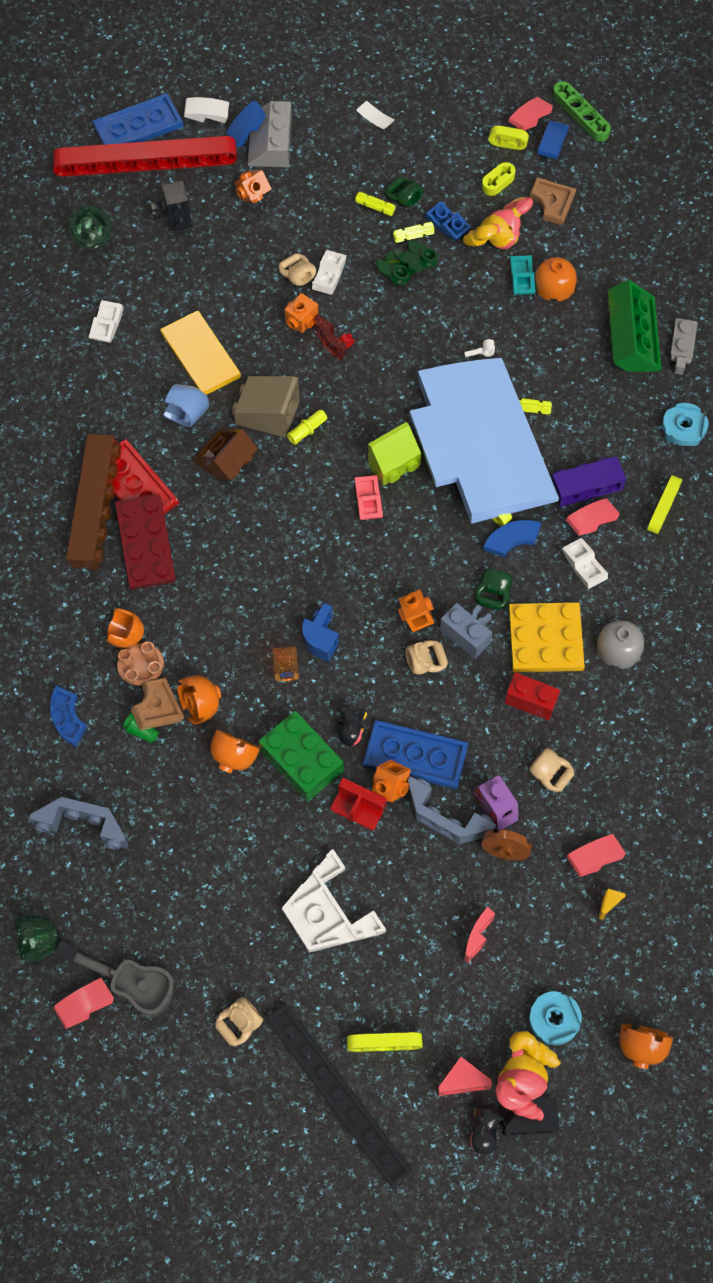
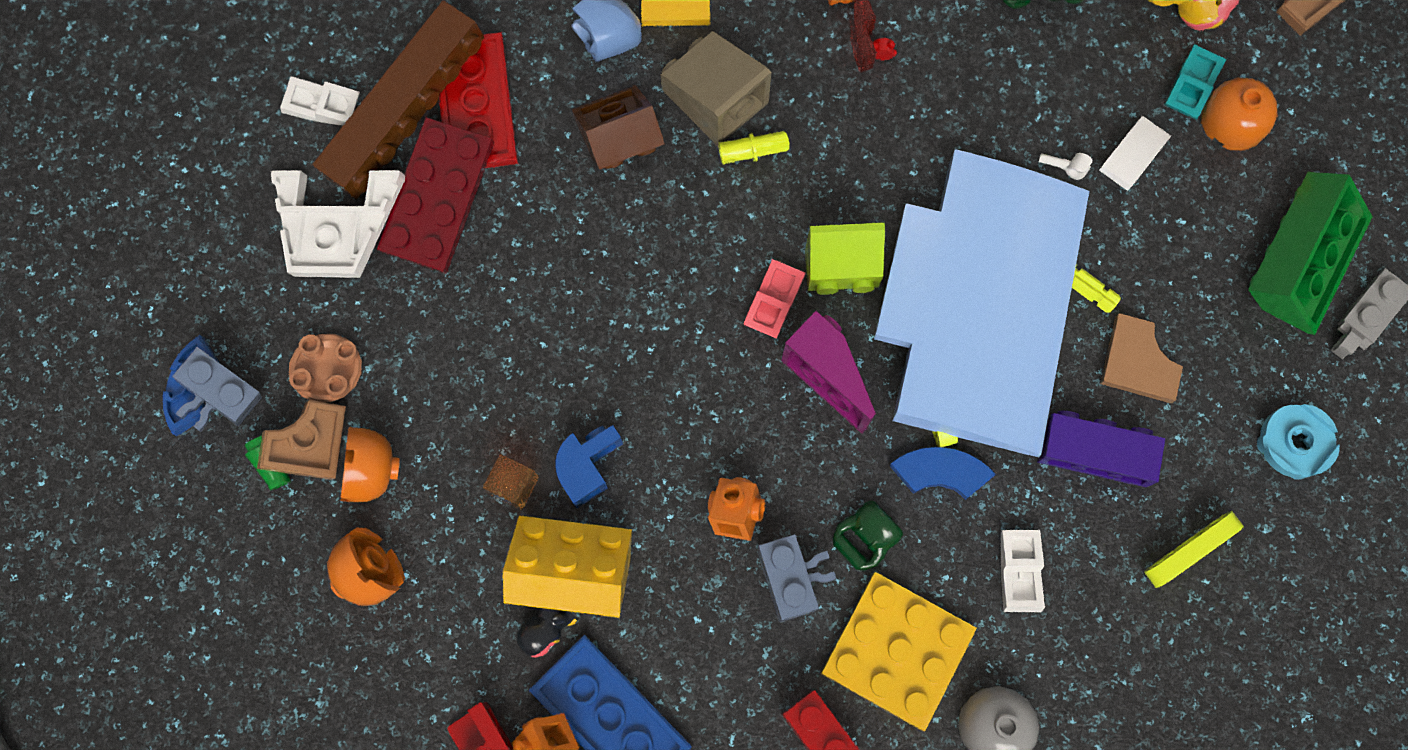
camera: 30 degrees right, 10 degrees up
(44, 529) = (319, 103): none -> white slope
(50, 815) = (141, 589): sand blue slope -> none
(88, 703) = (215, 387): none -> sand blue brick
(100, 593) = (332, 238): none -> white wing
(124, 629) = (329, 309): orange hair -> none
(301, 756) = (448, 631): green brick -> none
(346, 684) = (567, 566): none -> yellow brick
(420, 660) = (701, 579): tan piece -> none
(423, 514) = (825, 363): none -> magenta slope
(513, 326) = (1135, 153): none -> white slope
(579, 430) = (1137, 363): none -> medium nougat tile
(591, 516) = (1075, 507): coral slope -> none

